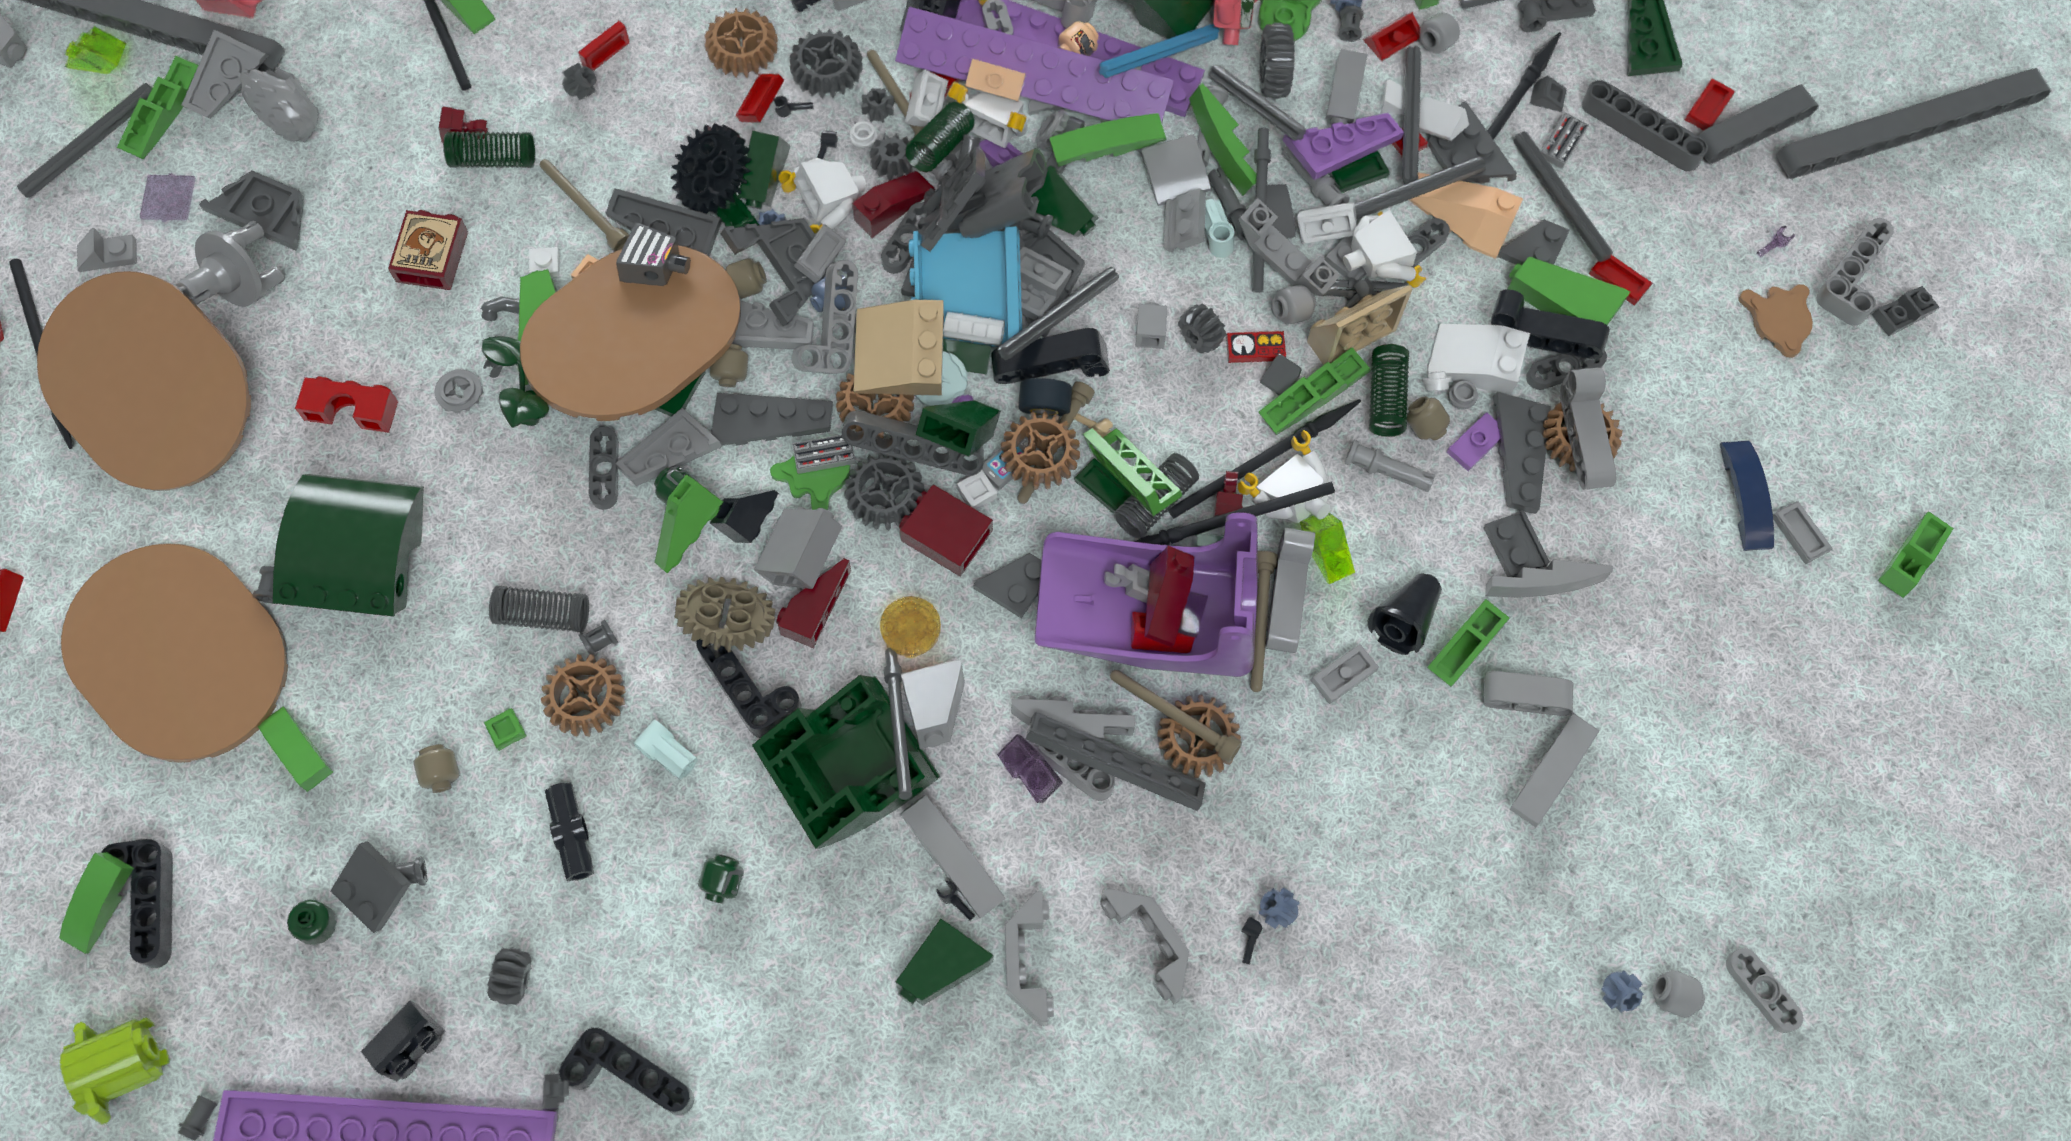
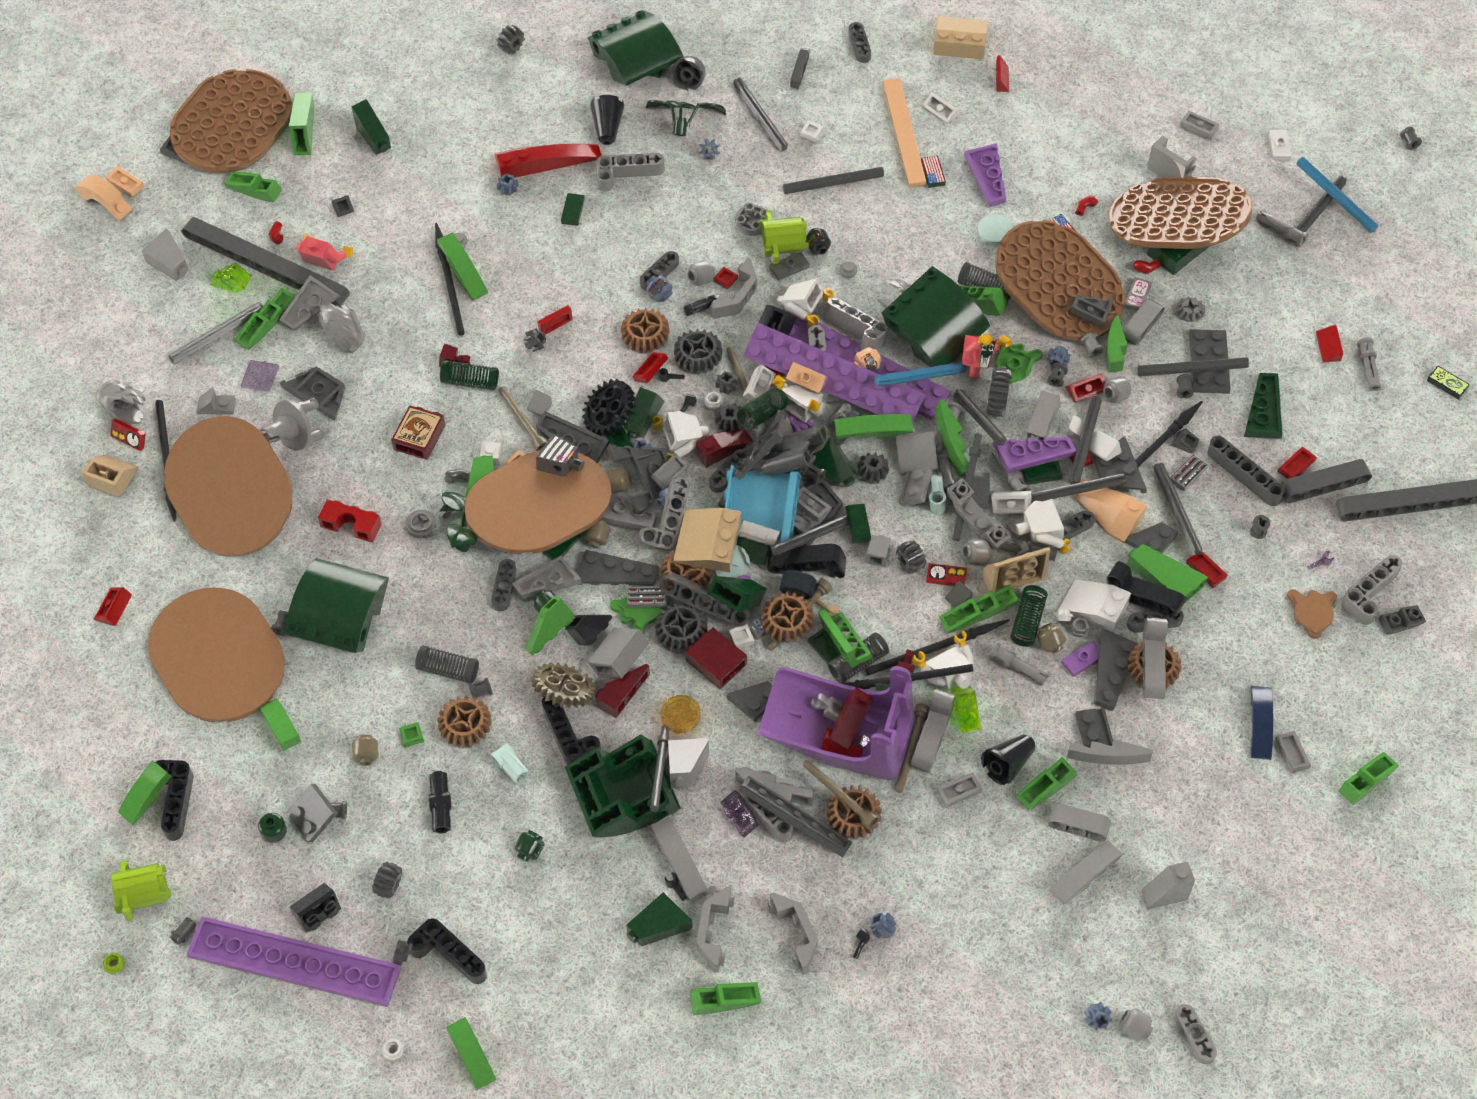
camera: 15 degrees right, 10 degrees down
(604, 177) = (539, 403): none -> light grey slope
(1066, 1067) = (724, 997): none -> bright green slope
(1114, 289) = (858, 523): none -> dark green tile
(1117, 201) = (873, 467): none -> dark grey gear
(1682, 205) = (1261, 527): none -> dark grey bush
(1683, 772) = (1170, 886): none -> light grey slope

